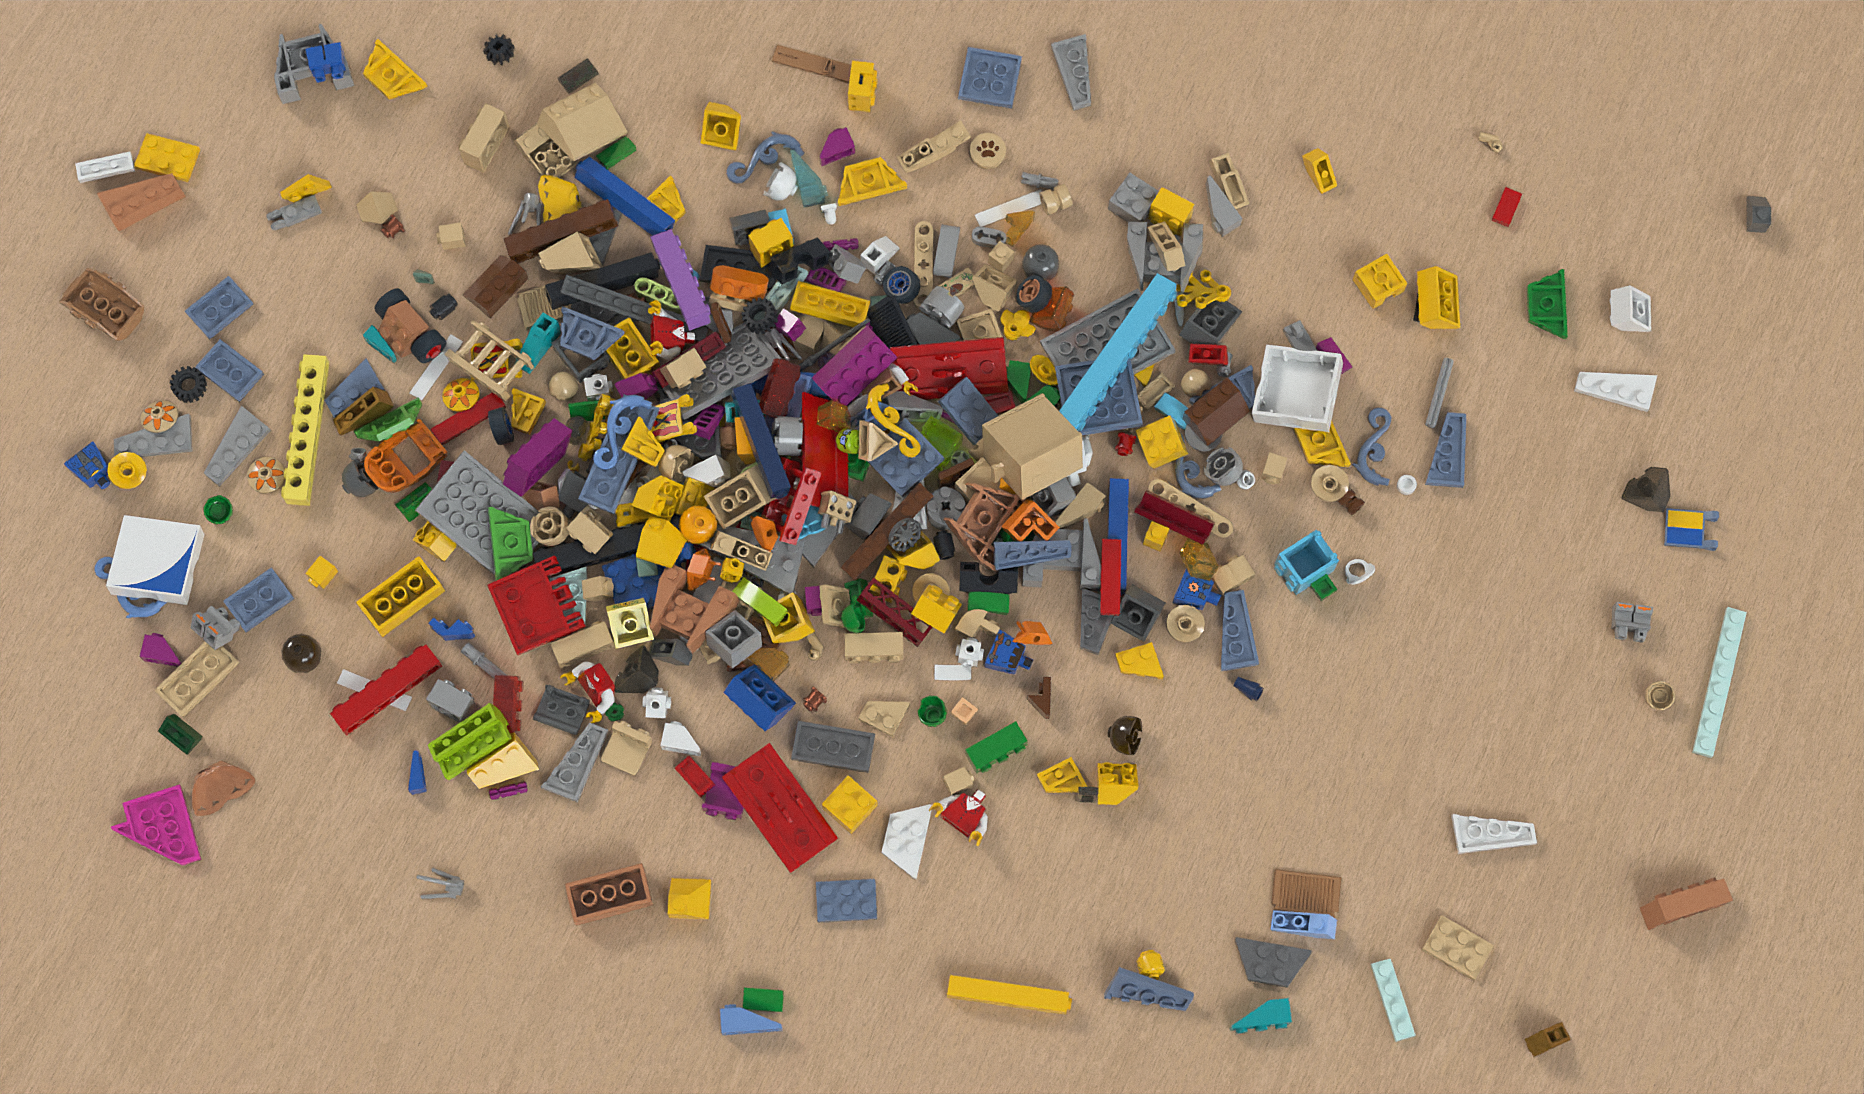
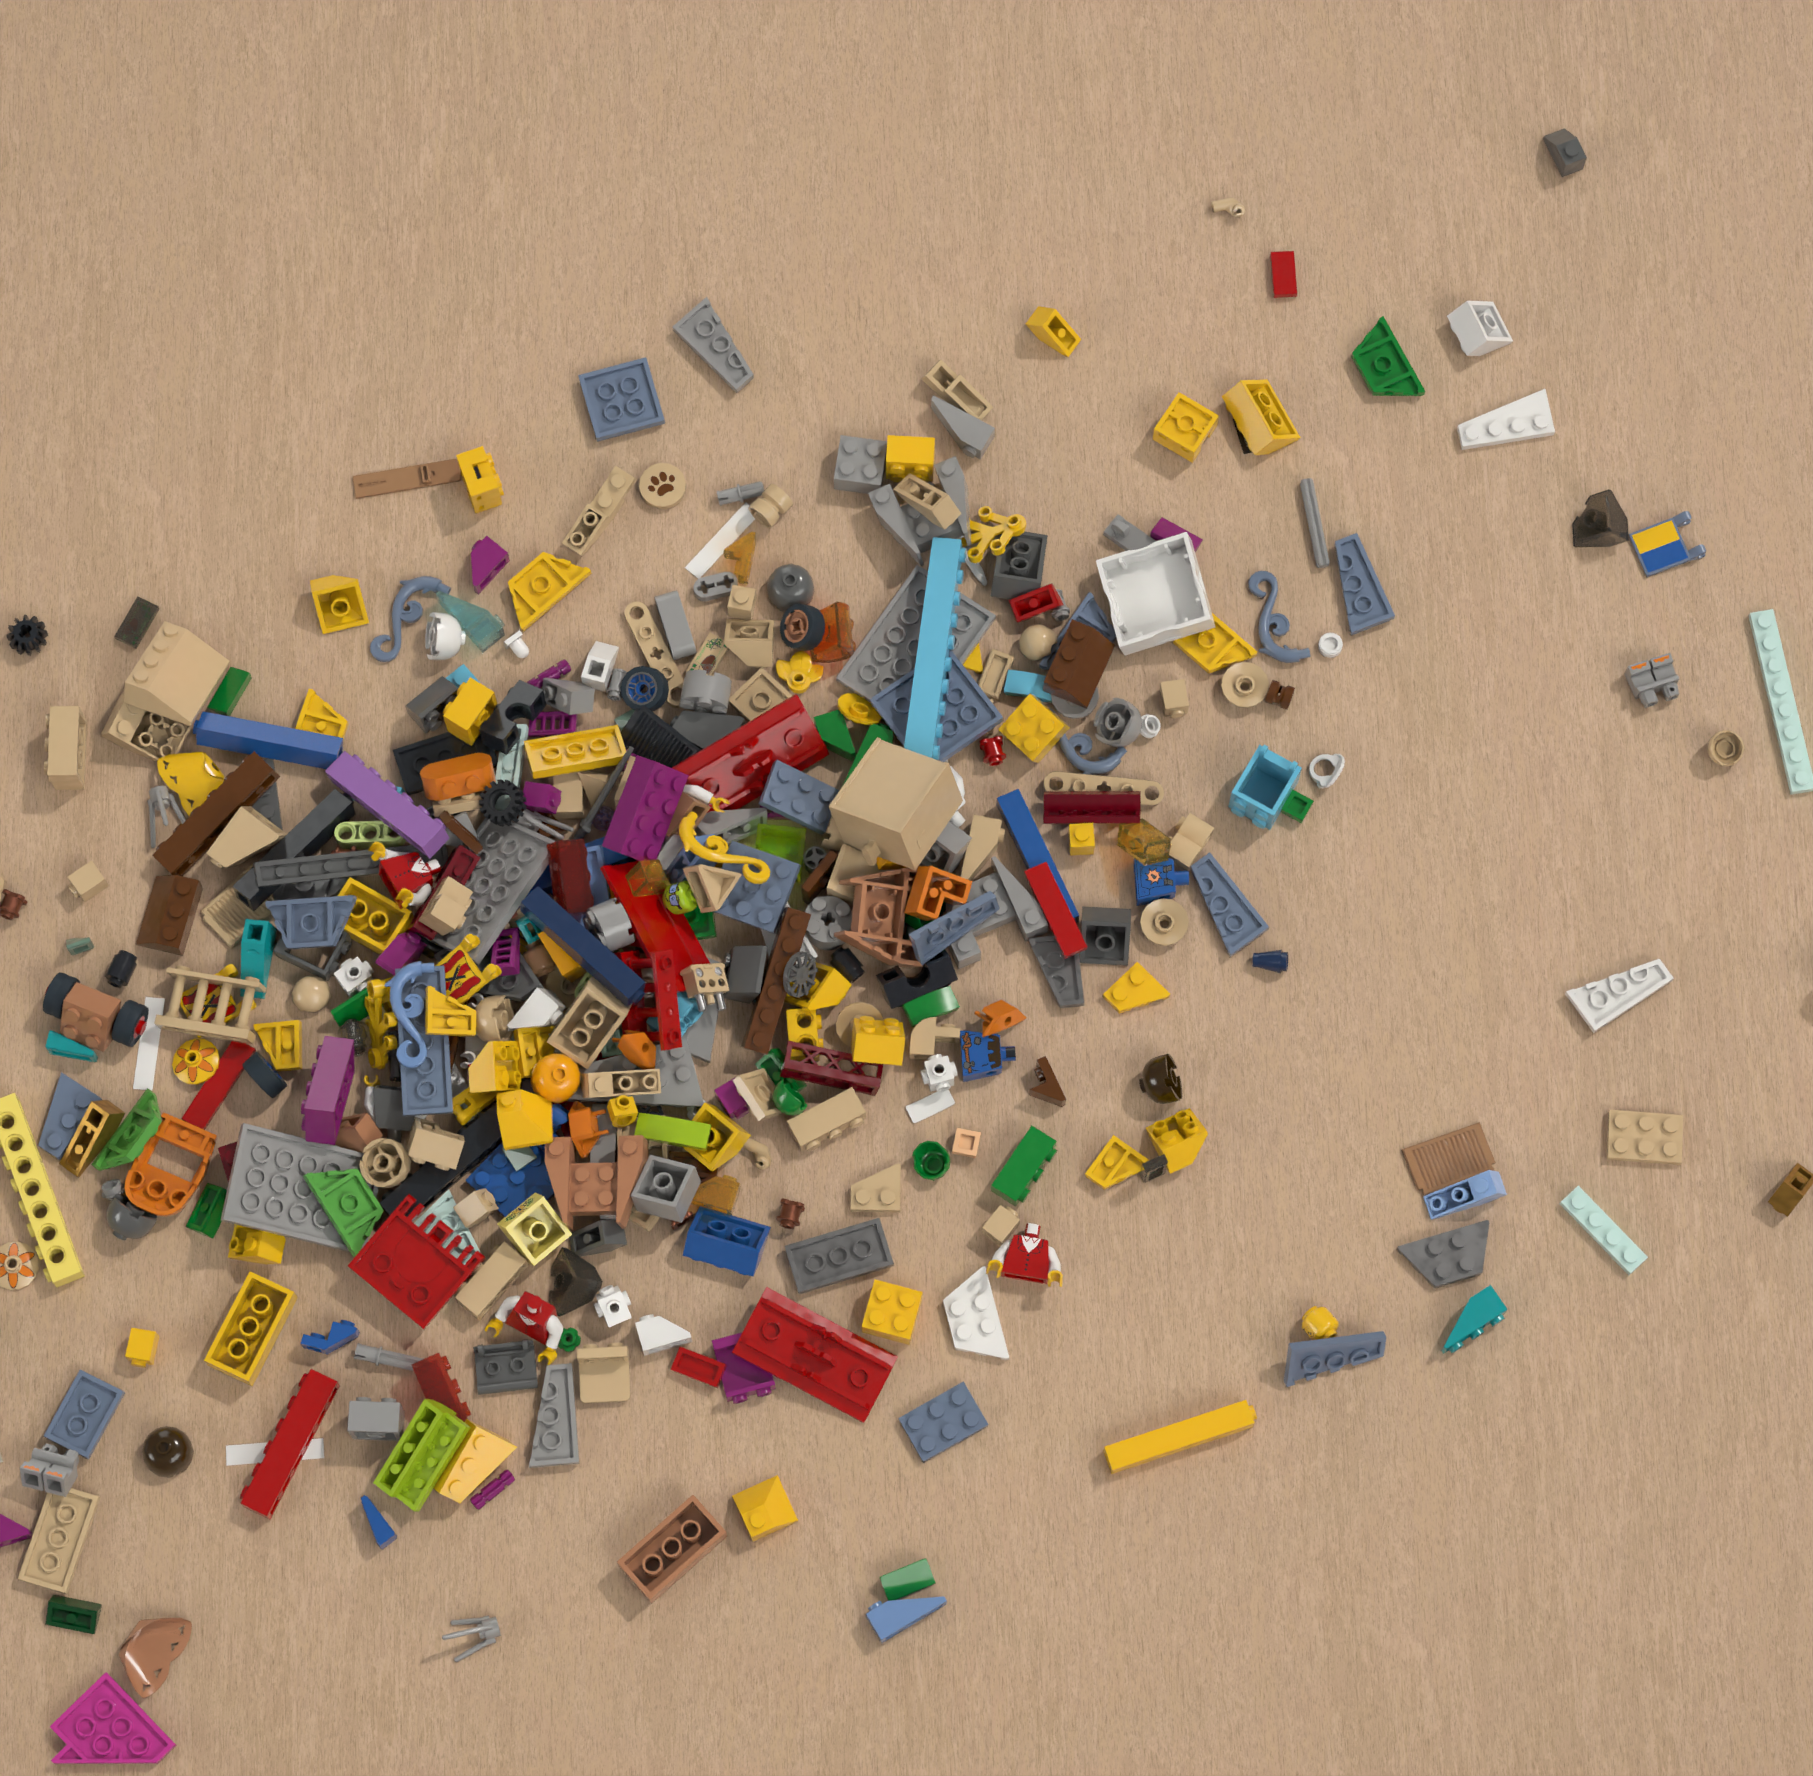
camera: 25 degrees left, 0 degrees up
(1001, 402) = (828, 769): red tile -> none

